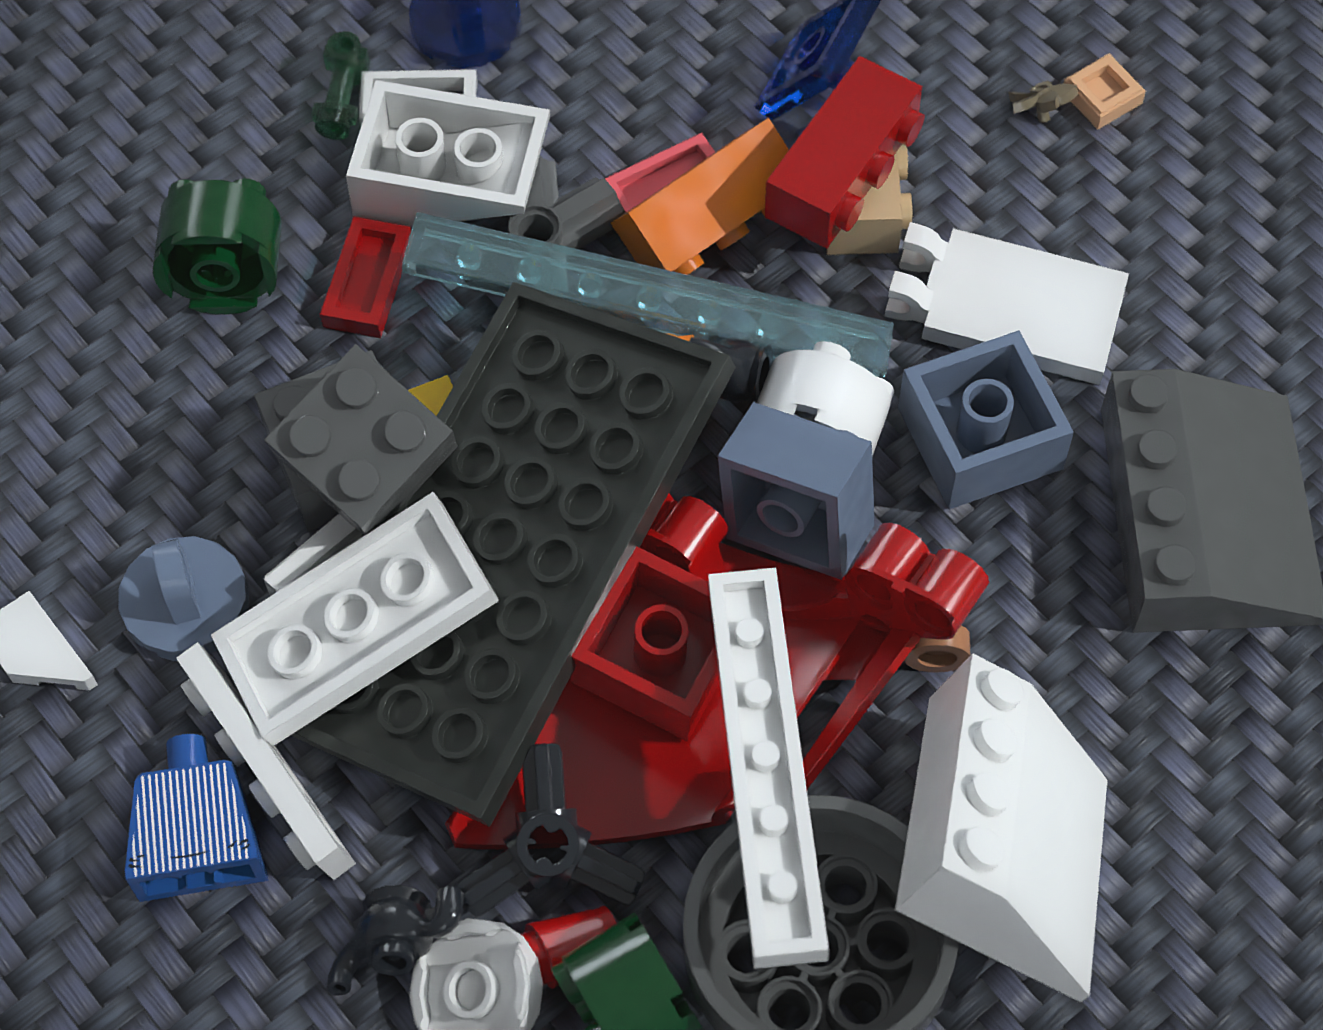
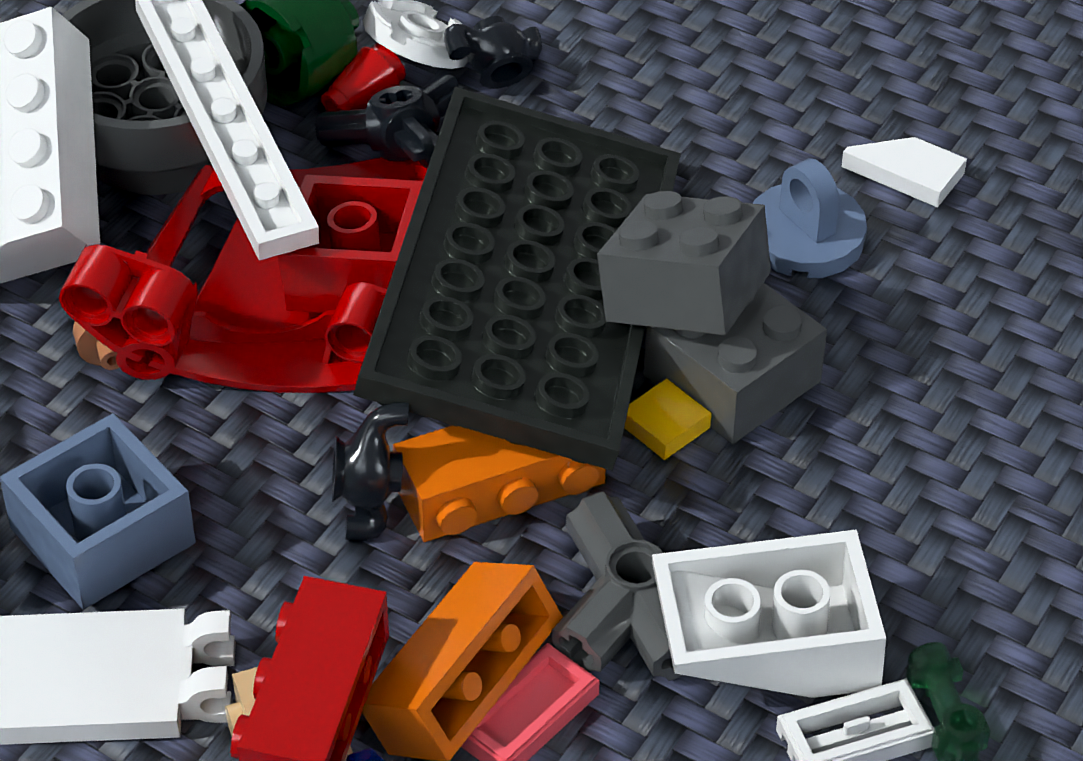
camera: 160 degrees right, 15 degrees down
(191, 827) = (691, 77): blue torso -> none
(217, 244) = (956, 466): dark green brick -> none
(277, 785) = (636, 111): white plate -> none
(353, 619) = (598, 184): white plate -> none
(366, 277) = (796, 502): red tile -> none
(638, 292) = (491, 529): clear light blue tile -> none
(797, 489) = (266, 373): sand blue brick -> none
(828, 390) = (267, 459): white brick -> none

